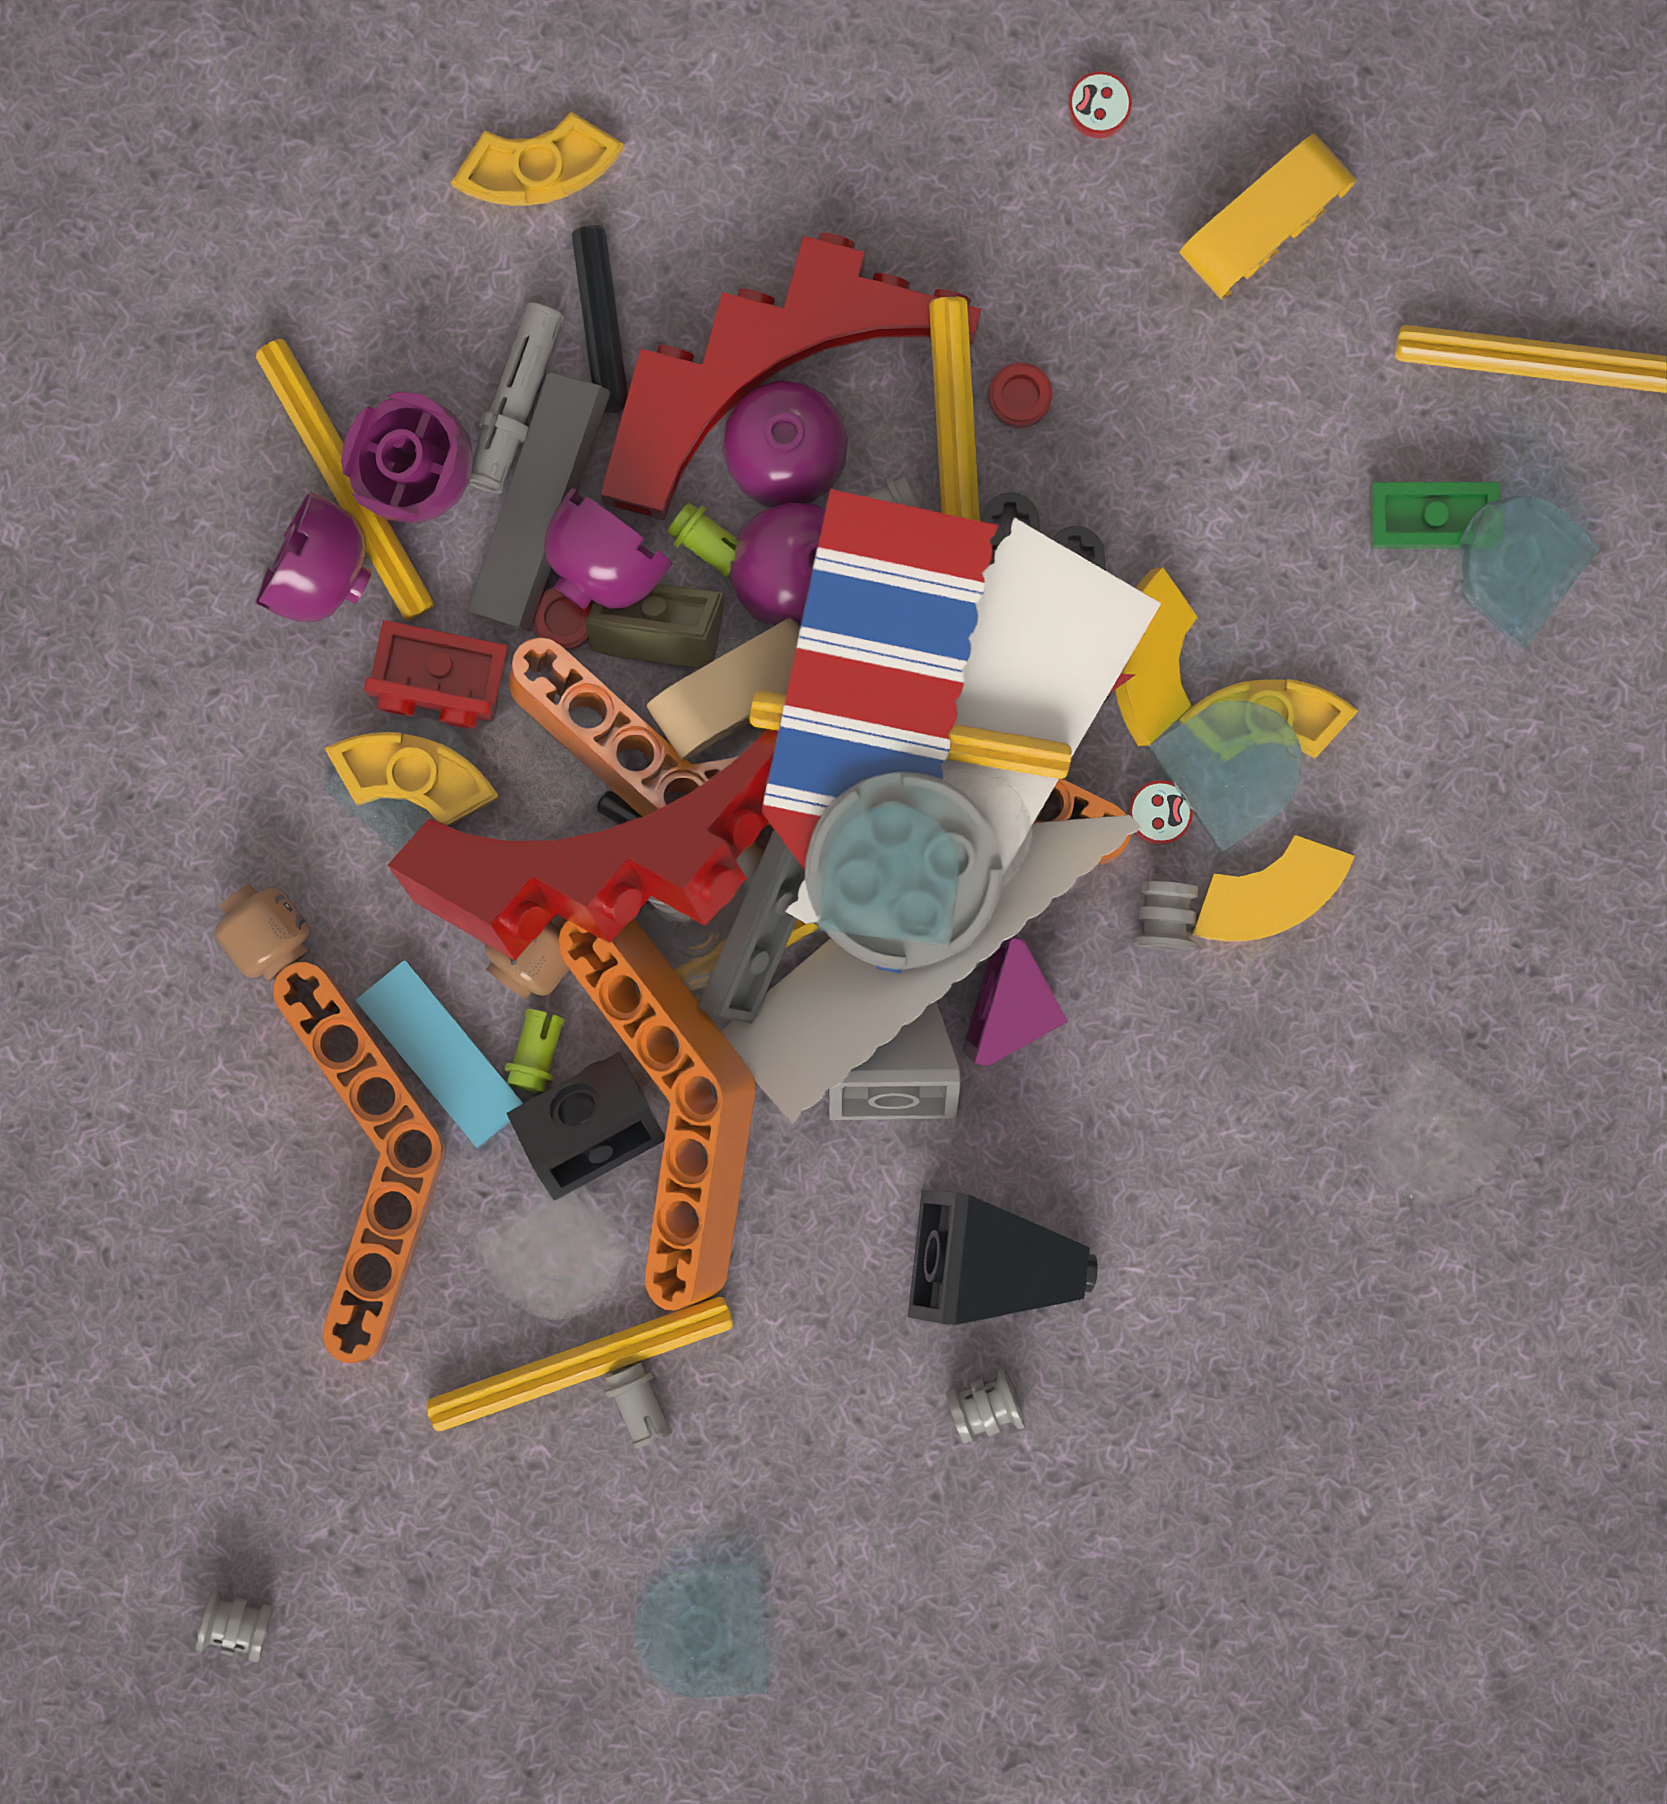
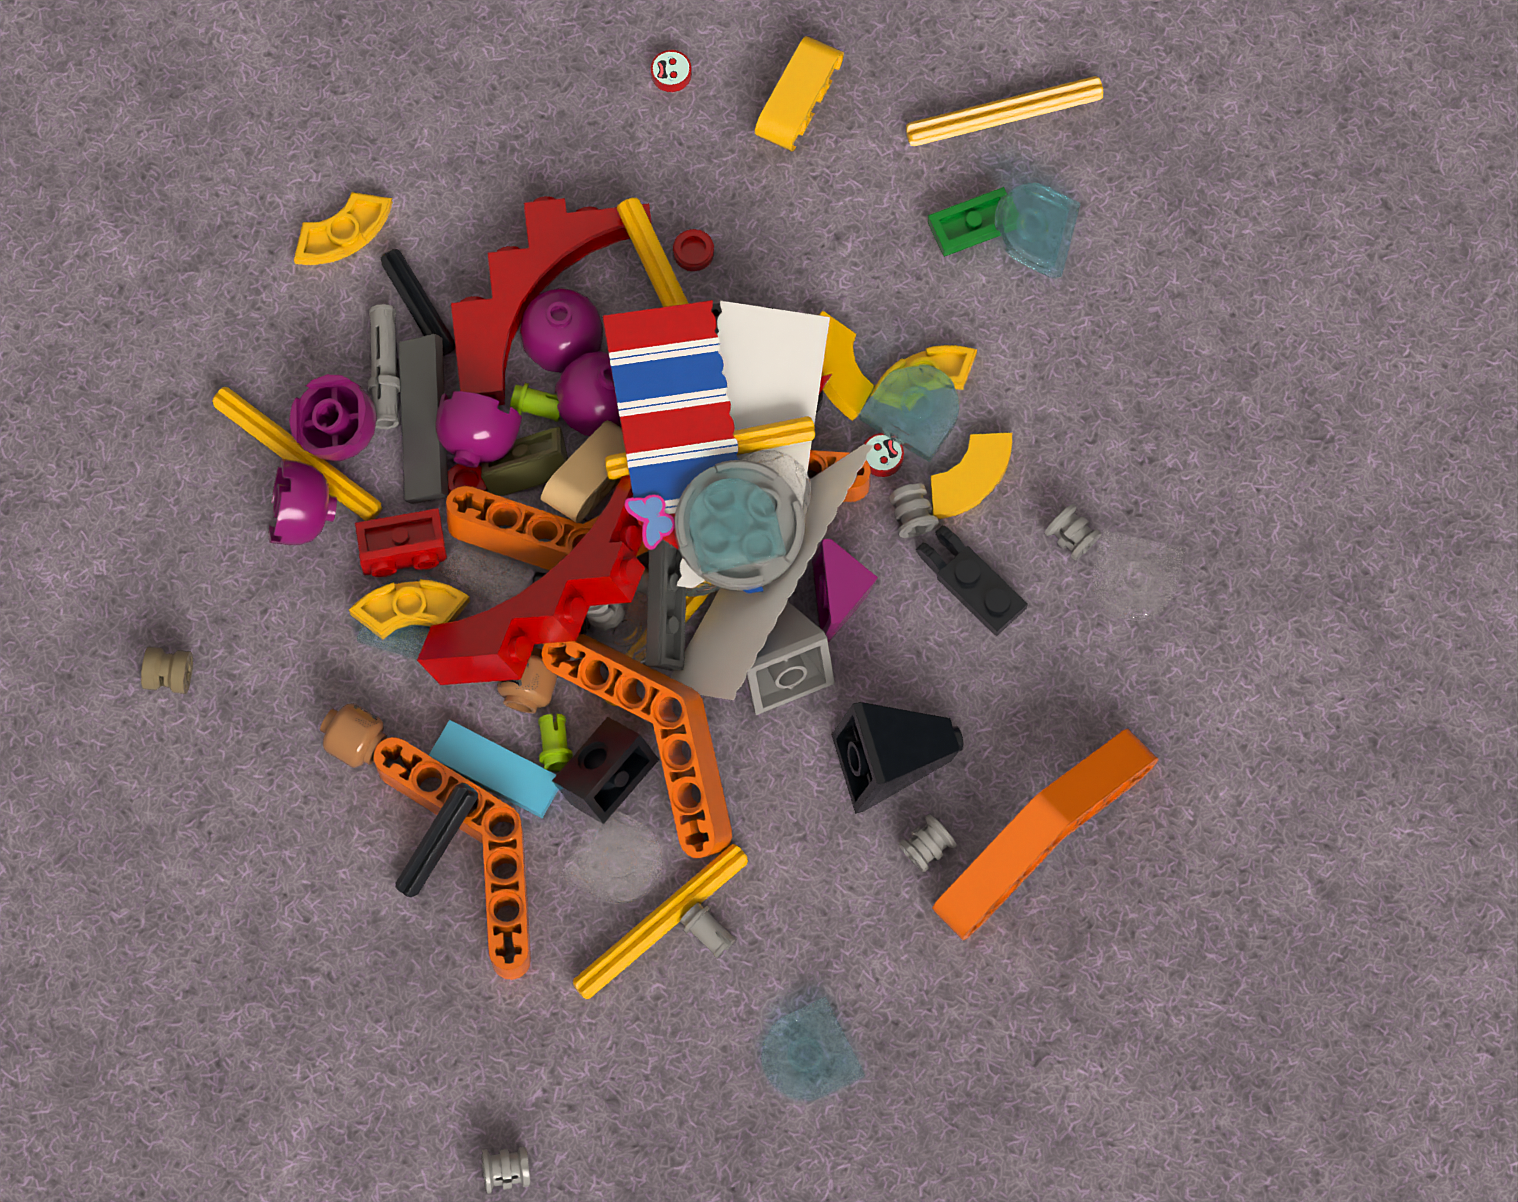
camera: 20 degrees left, 15 degrees down
(49, 733) = (167, 670): none -> dark tan wheel
(316, 1135) = (436, 840): none -> black axle
(787, 820) = (656, 521): none -> medium blue sticker
(1155, 1463) = (1040, 828): none -> orange beam
(1209, 1056) = (973, 582): none -> black hinge
(1377, 1039) = (1073, 532): none -> light grey bush

